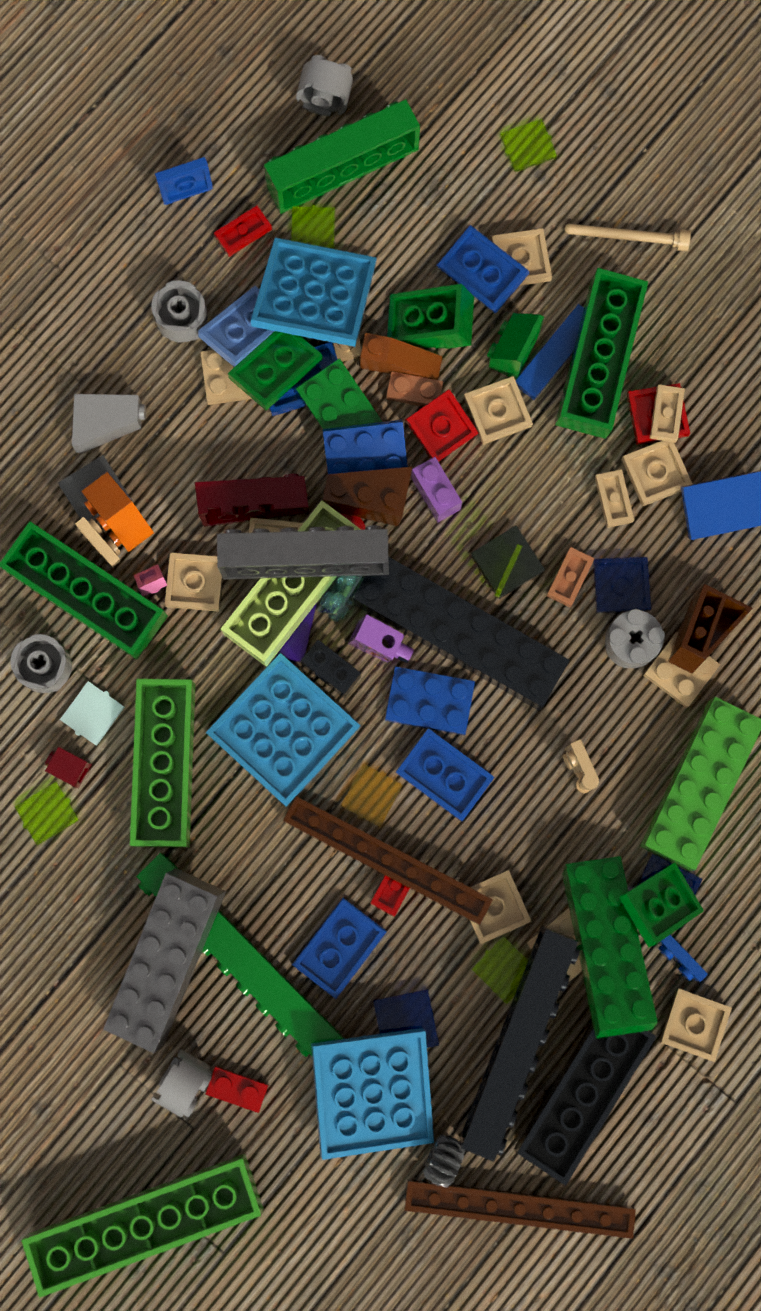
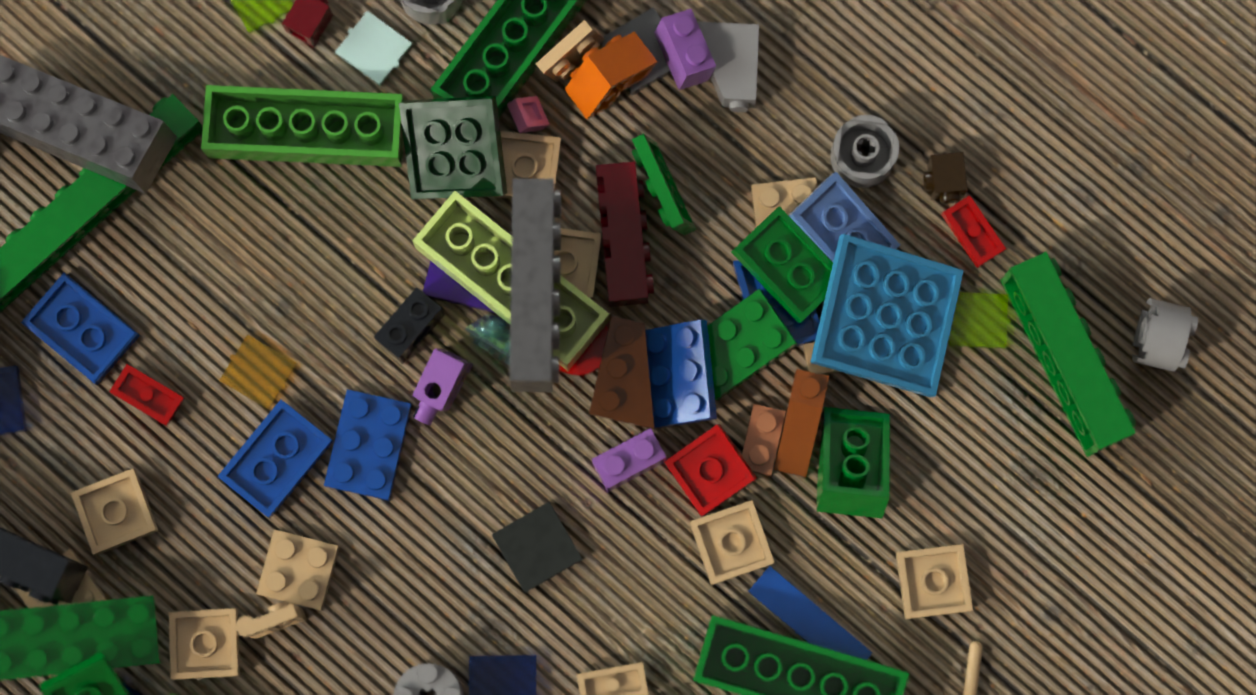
camera: 95 degrees right, 0 degrees up
(95, 452) = (685, 49): none -> medium lavender brick
(181, 635) = (453, 147): none -> dark green plate
(184, 181) = (1034, 158): blue tile -> none
(199, 250) = (946, 177): none -> dark brown brick
(211, 466) = (661, 184): none -> green plate
(283, 729) = (340, 268): dark azure plate -> none
(388, 860) = (173, 386): reddish brown plate -> none
(462, 633) = (445, 486): black brick -> none
(483, 269) = (917, 530): blue tile -> none
(502, 969) = (43, 518): clear neon green piece -> none
(508, 570) = (516, 541): clear neon green piece -> none
(515, 344) = (815, 566): green slope -> none
(528, 145) = (1092, 599): clear neon green piece -> none
(535, 752) = (298, 570): none -> tan plate
(570, 577) = (513, 623): nougat plate -> none
(599, 825) = (204, 644): none -> tan plate

